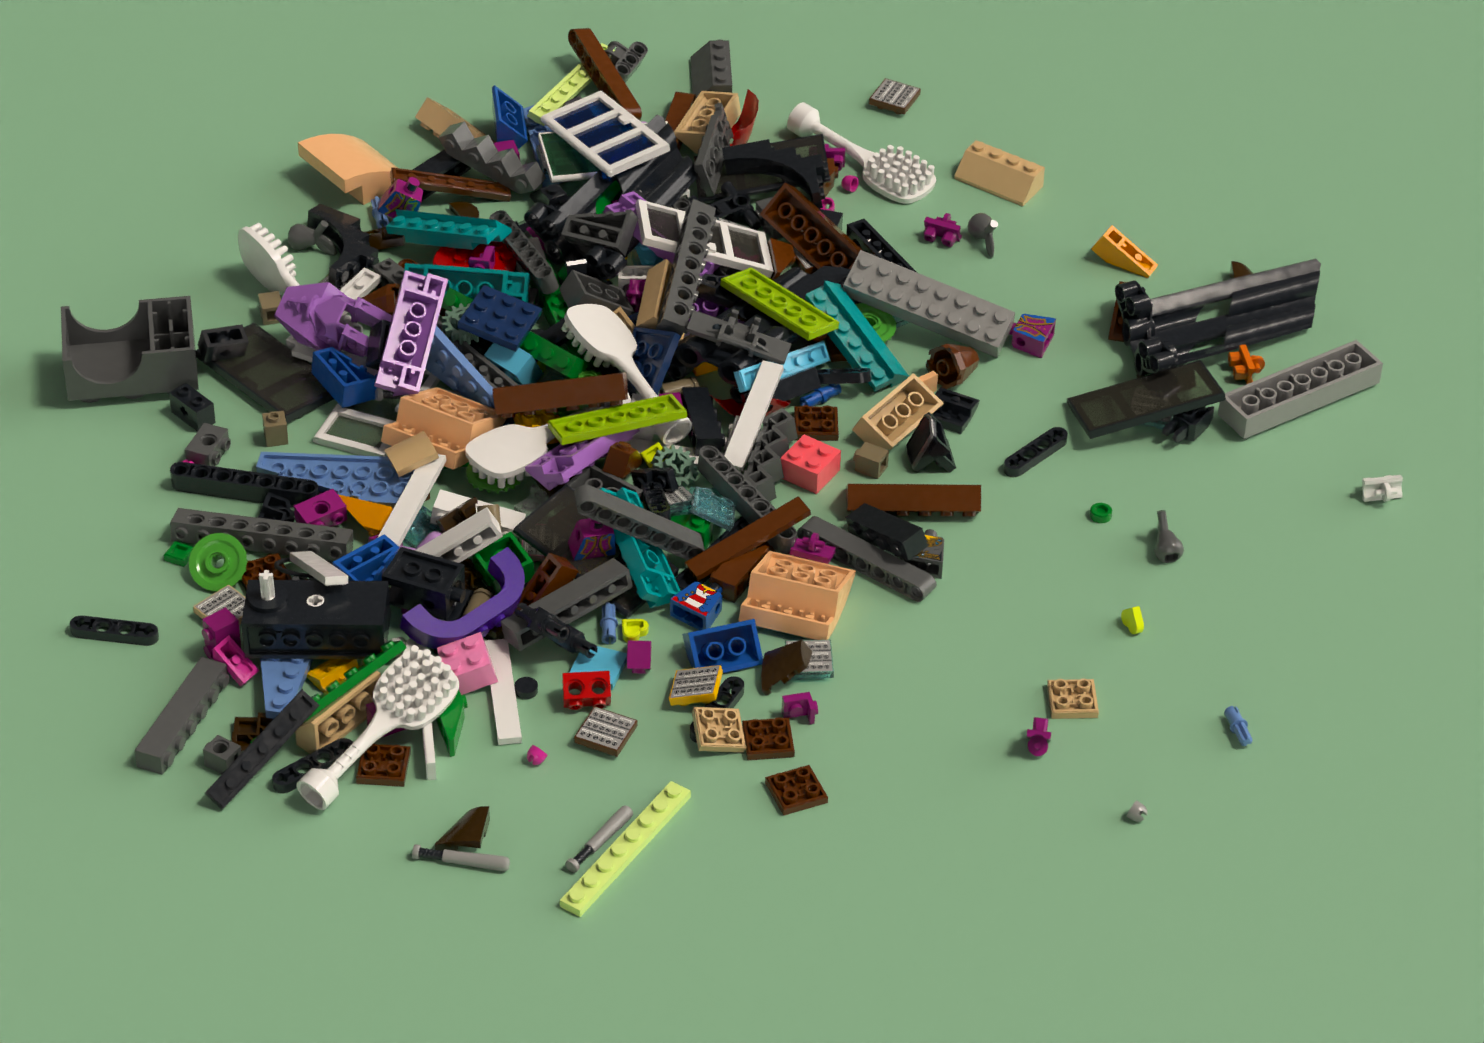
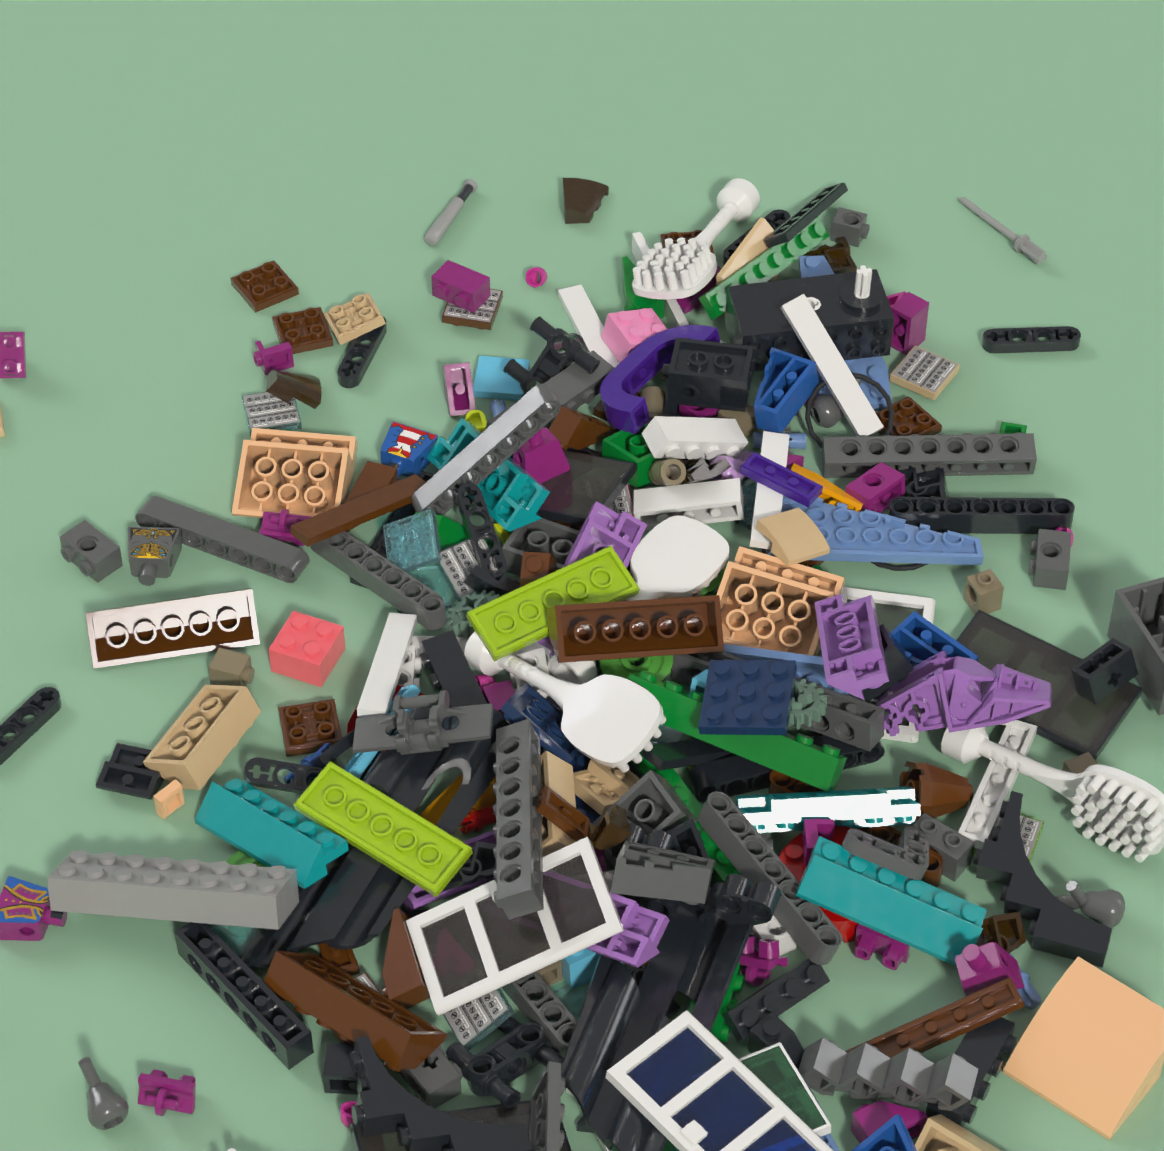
camera: 170 degrees right, 5 degrees up
(68, 718) = (1021, 243): none -> light grey piece
(181, 715) = (909, 249): dark grey brick -> none
(191, 406) = (1091, 603): black brick -> none
(208, 552) = (957, 411): bright green gear -> none
(400, 497) = (781, 479): none -> dark purple tile
(432, 231) = (907, 858): none -> dark grey beam
(464, 209) = (890, 1008): dark brown tile -> none
(478, 860) = (553, 178): light grey piece -> none
(586, 683) = (503, 335): red brick -> none
(614, 728) = (460, 286): none -> magenta brick
(625, 849) = (422, 212): yellowish green plate -> none
(627, 265) = (611, 830): none -> dark brown slope
(654, 275) = (562, 814): none -> reddish brown tile
(695, 685) = (388, 357): tile -> none
(729, 645) = (371, 409): blue slope -> none
(771, 445) = (361, 631): dark grey brick -> none
(886, 531) = (198, 547): black brick -> none
(929, 445) = (152, 688): black piece -> none
(952, 364) = (132, 825): reddish brown cone -> none
(975, 562) = (90, 551): none -> dark grey brick

